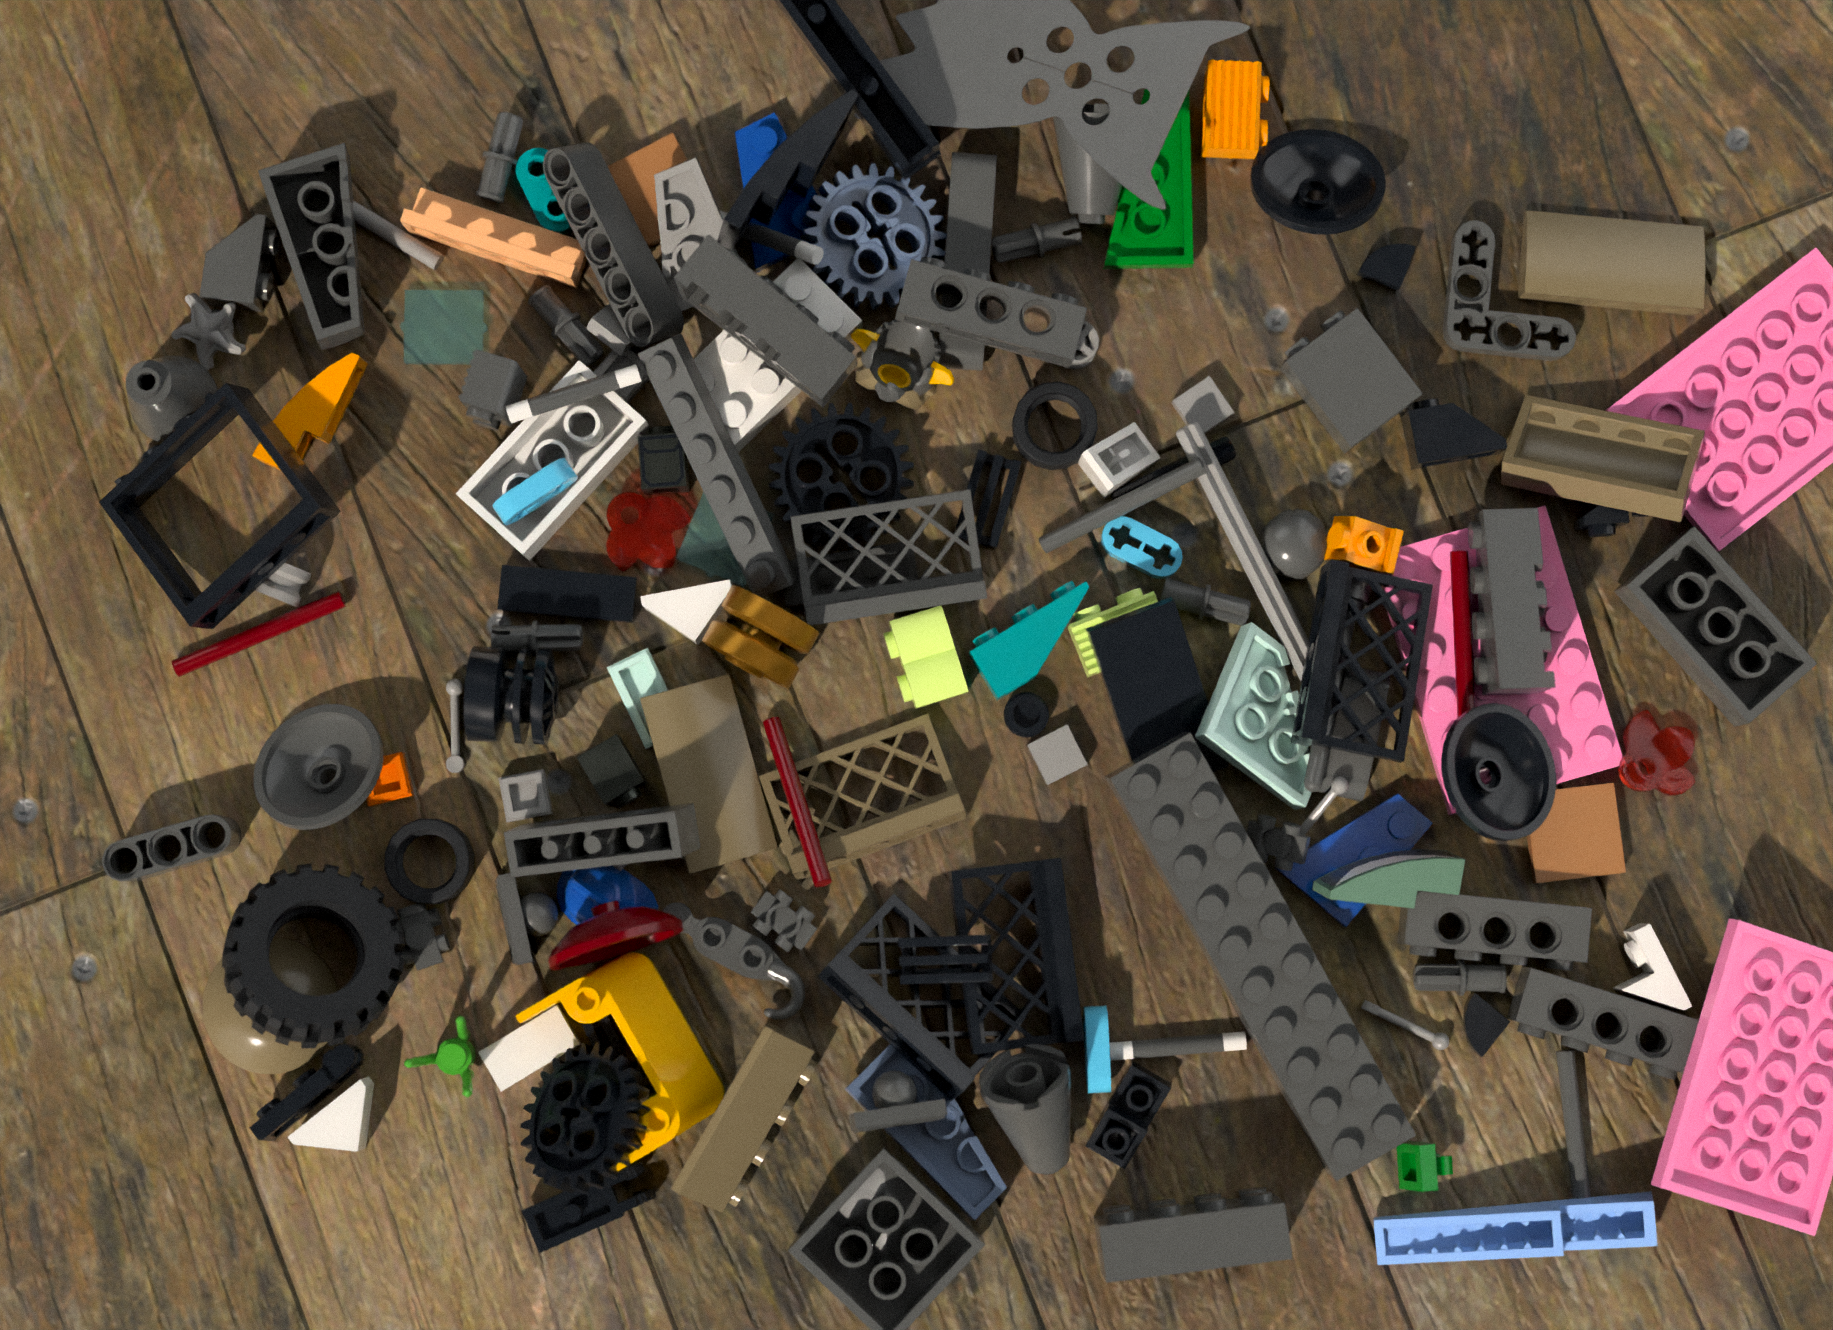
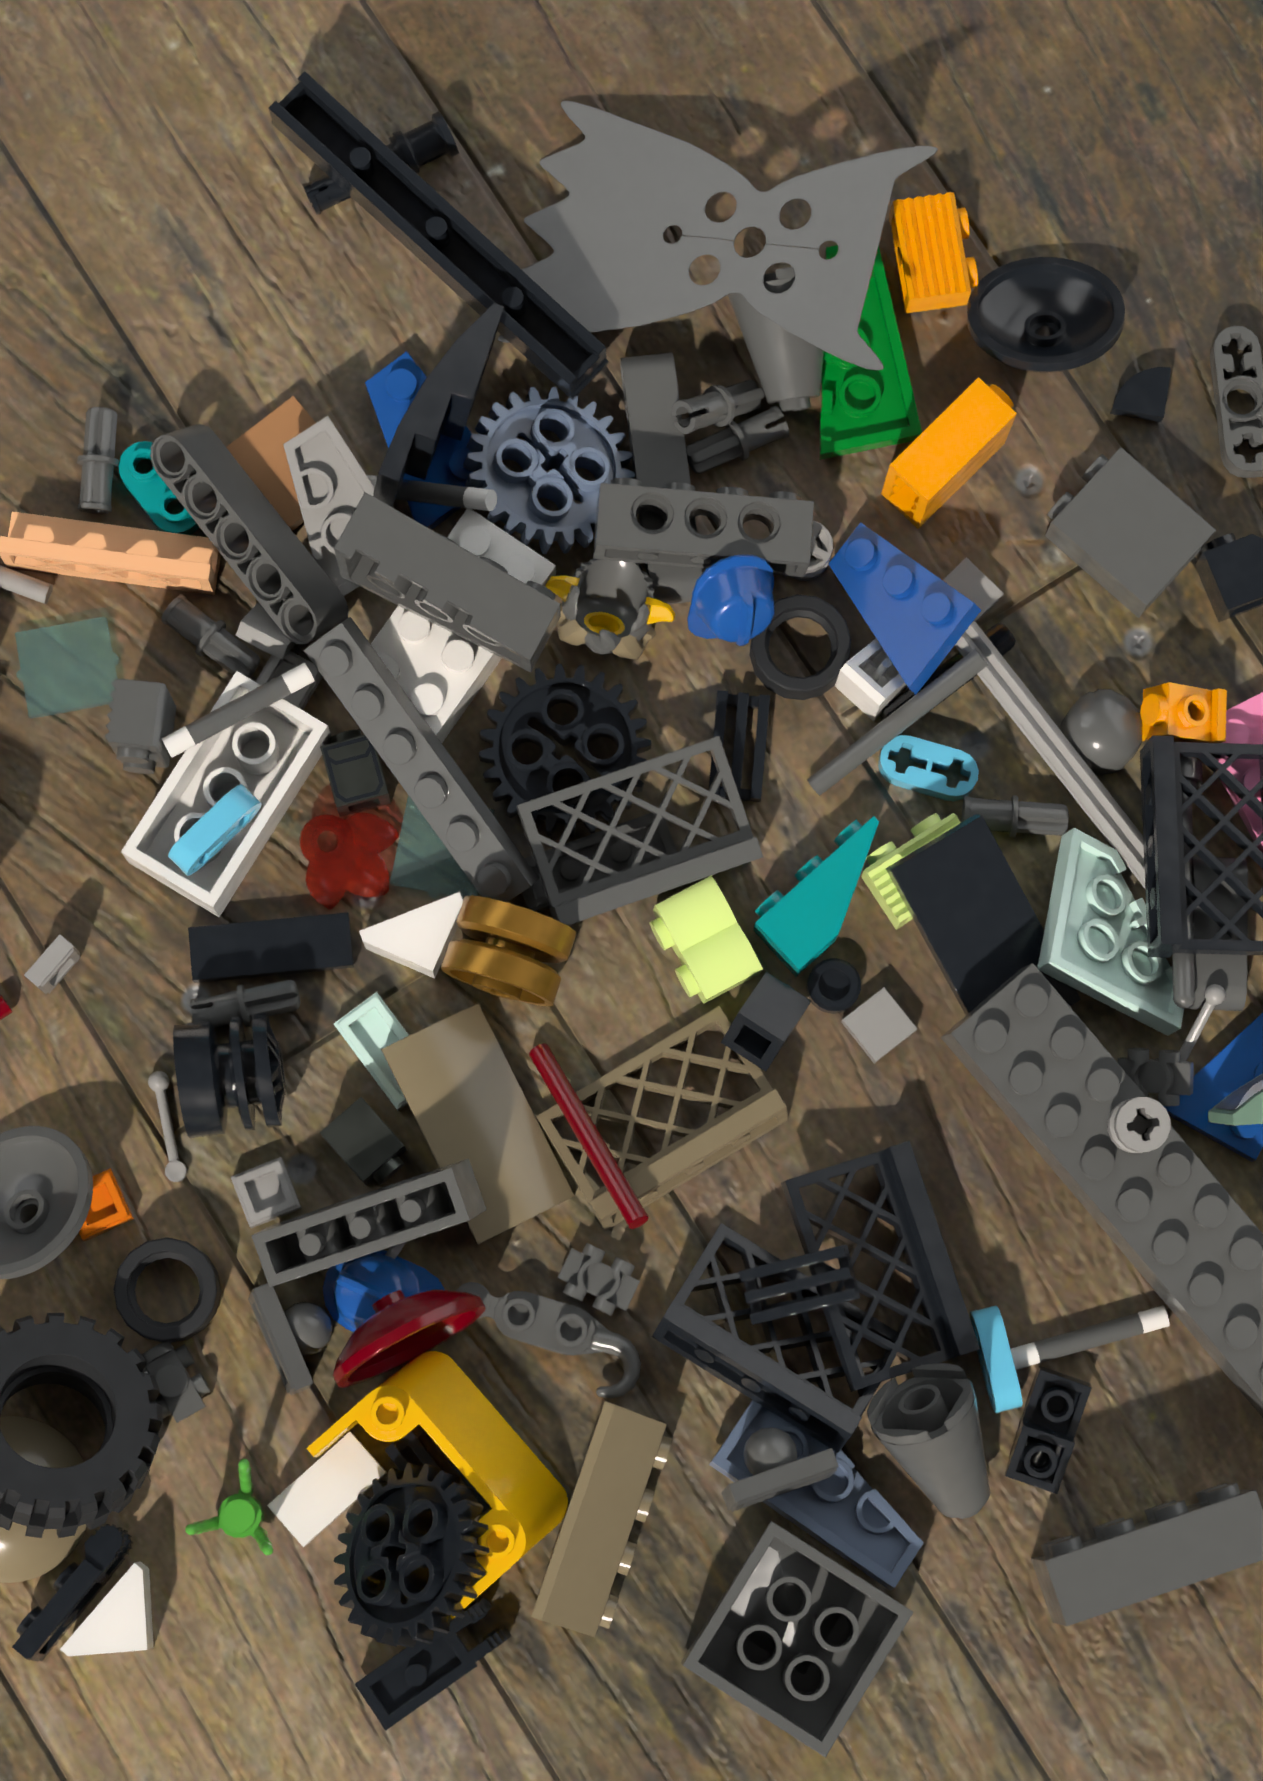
camera: 15 degrees left, 5 degrees down
(385, 575) = (53, 964): none -> light grey tile
(962, 735) = (766, 1021): none -> black brick
(1004, 378) = (733, 600): none -> blue piece
(1025, 208) = (717, 406): none -> dark grey axle
(1146, 406) = (903, 604): none -> blue wing
(1212, 284) = (949, 451): none -> light orange brick
(1241, 884) = (1127, 1127): none -> light grey wheel

